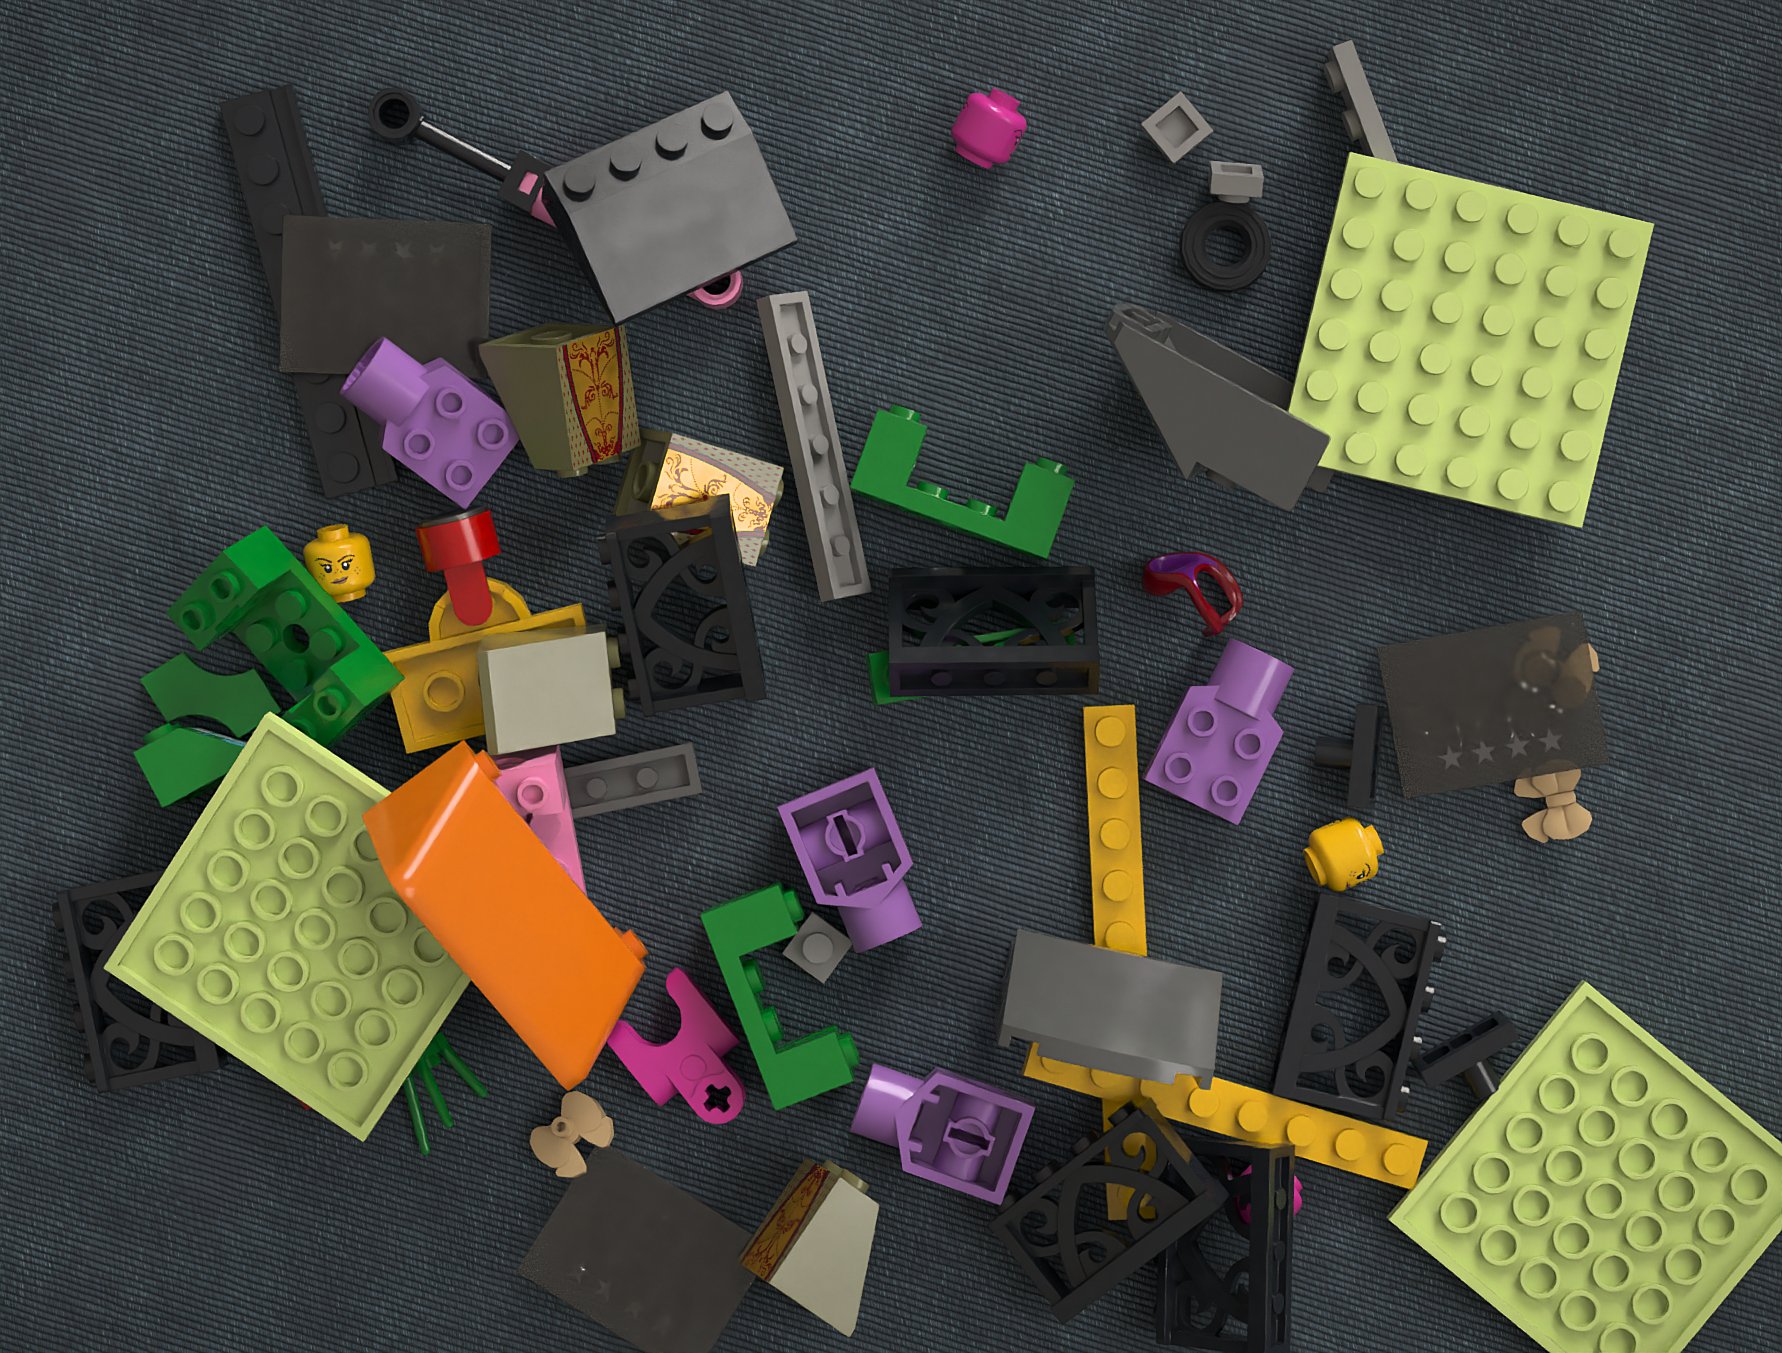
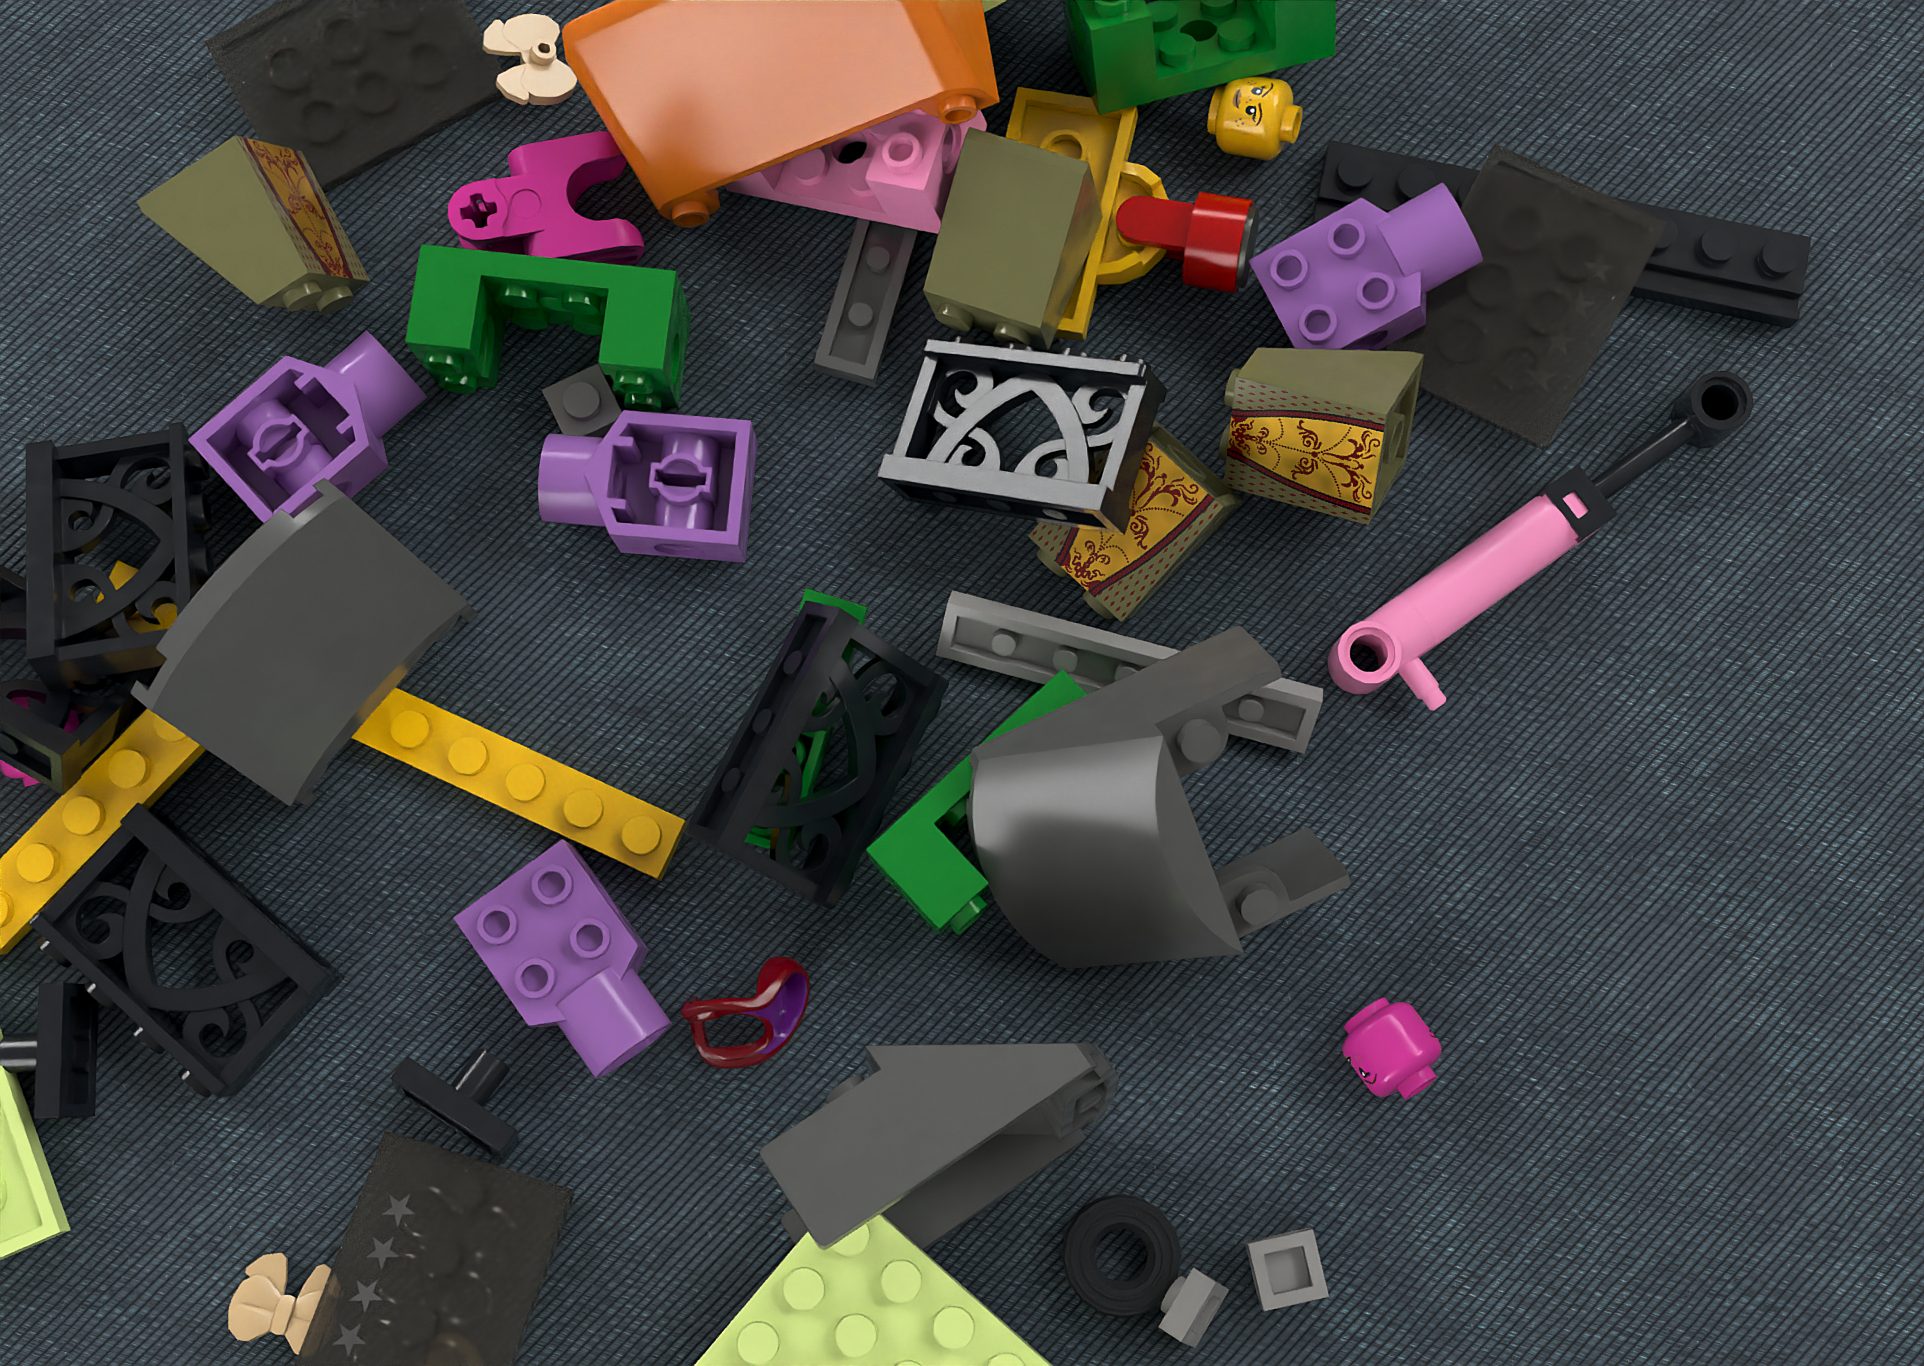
camera: 120 degrees right, 10 degrees down
(668, 208) = (1476, 637): slope -> none
(957, 406) = (1094, 834): none -> dark grey windscreen
(1343, 854) = (360, 1026): yellow head -> none

